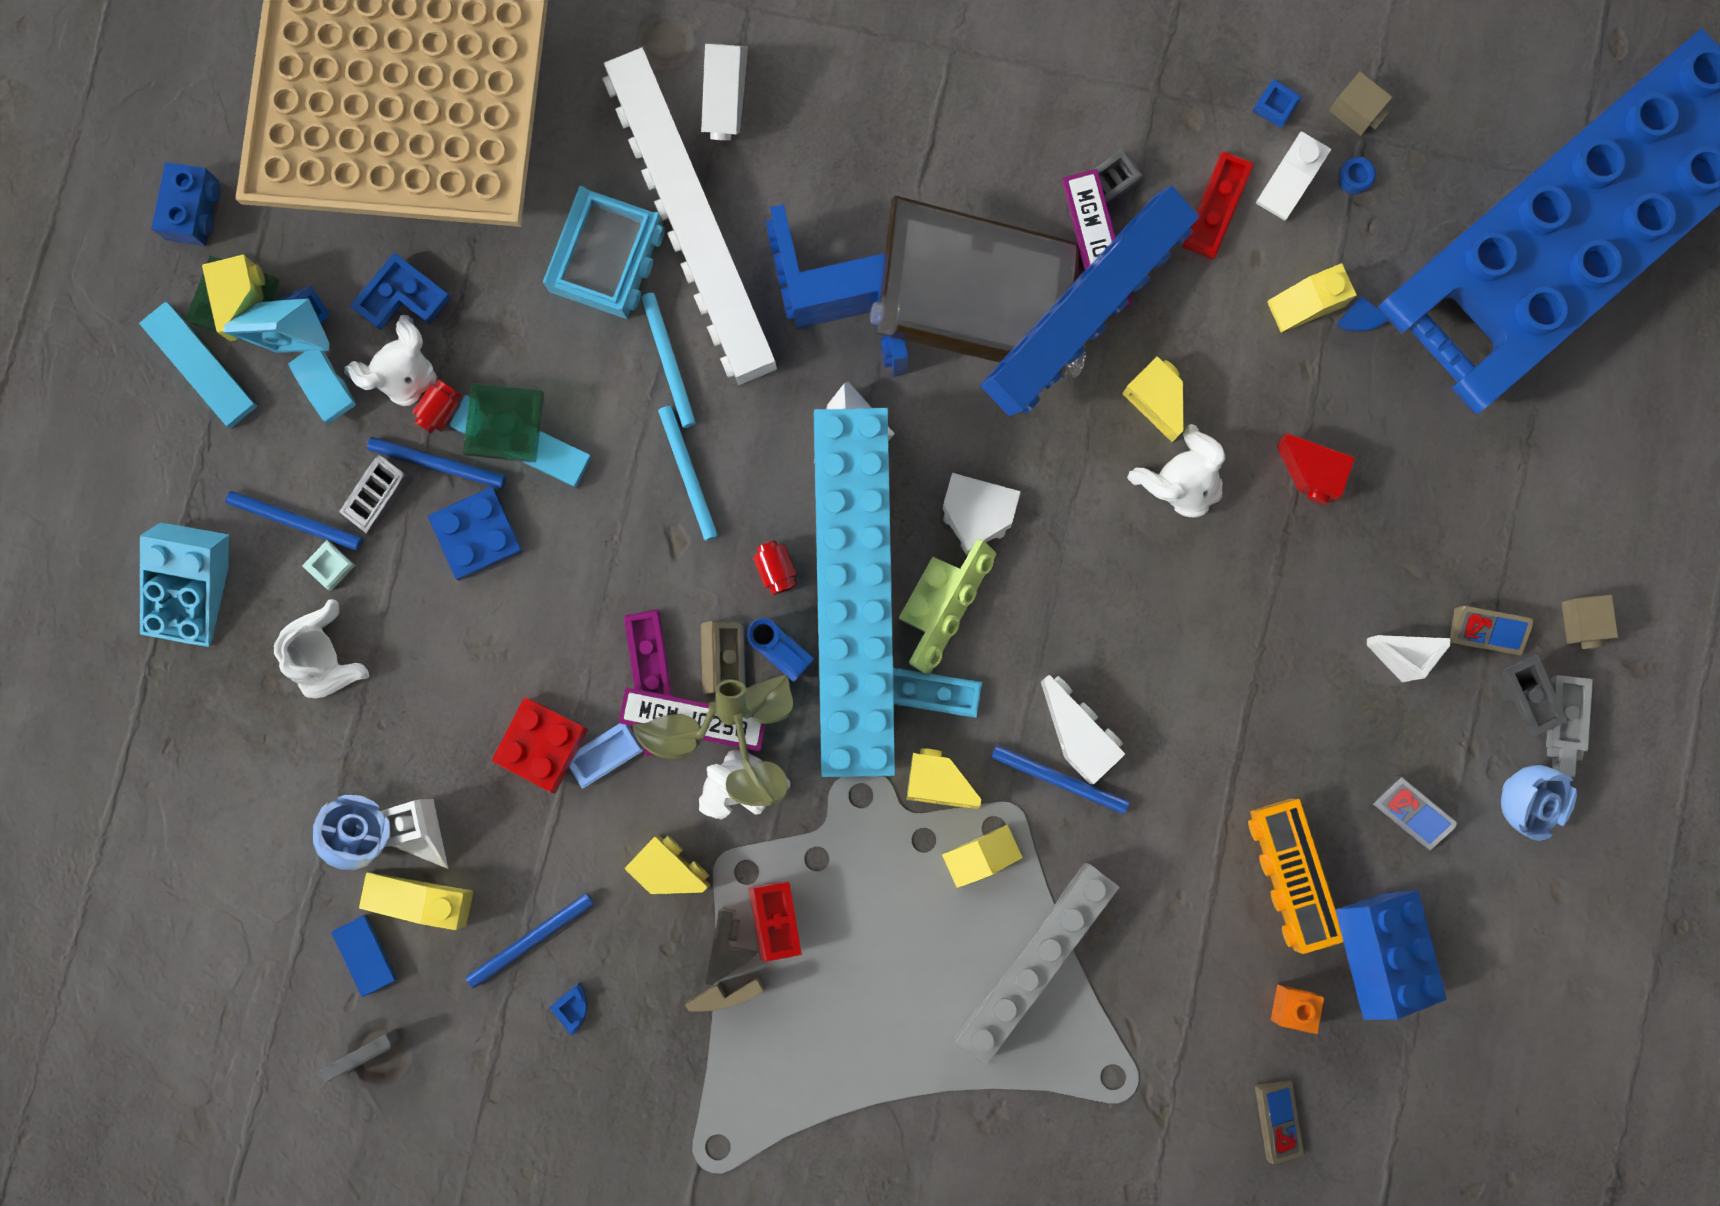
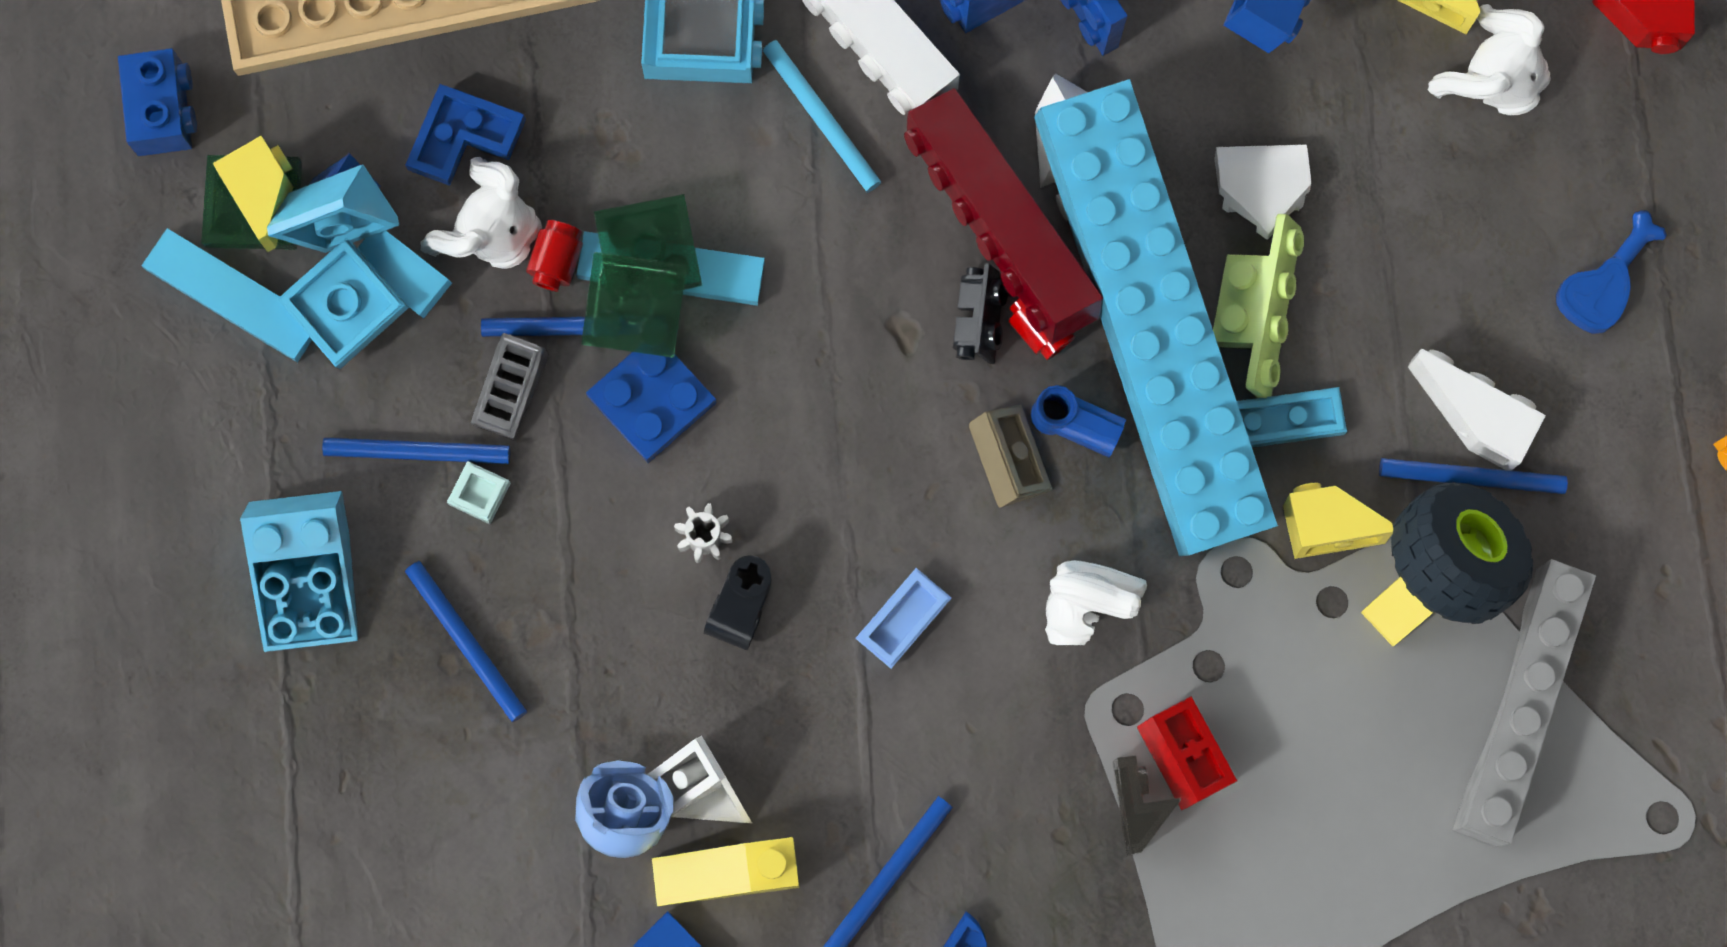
camera: 25 degrees left, 5 degrees down
(271, 396) = (343, 303): none -> medium azure tile
(288, 686) = (466, 641): none -> blue bar
(309, 656) = (497, 610): white hair -> none
(469, 641) = (708, 521): none -> white gear
(477, 462) = (633, 304): none -> clear green plate
(484, 711) = (738, 610): none -> black piece
(539, 745) = (820, 630): red plate -> none
(645, 706) = (1001, 539): tile -> none
(648, 654) = (933, 513): magenta tile -> none
(664, 871) = (1031, 736): light yellow slope -> none
(688, 473) = (892, 245): medium azure bar -> none
(717, 997) = (1148, 870): dark tan slope -> none
(730, 561) = (984, 295): none -> black hinge
(766, 702) = (1062, 493): olive plant -> none
(770, 479) = (1002, 216): none -> dark red brick
(1024, 839) = (1462, 553): none -> black wheel
(1201, 674) = (1599, 296): none -> blue piece

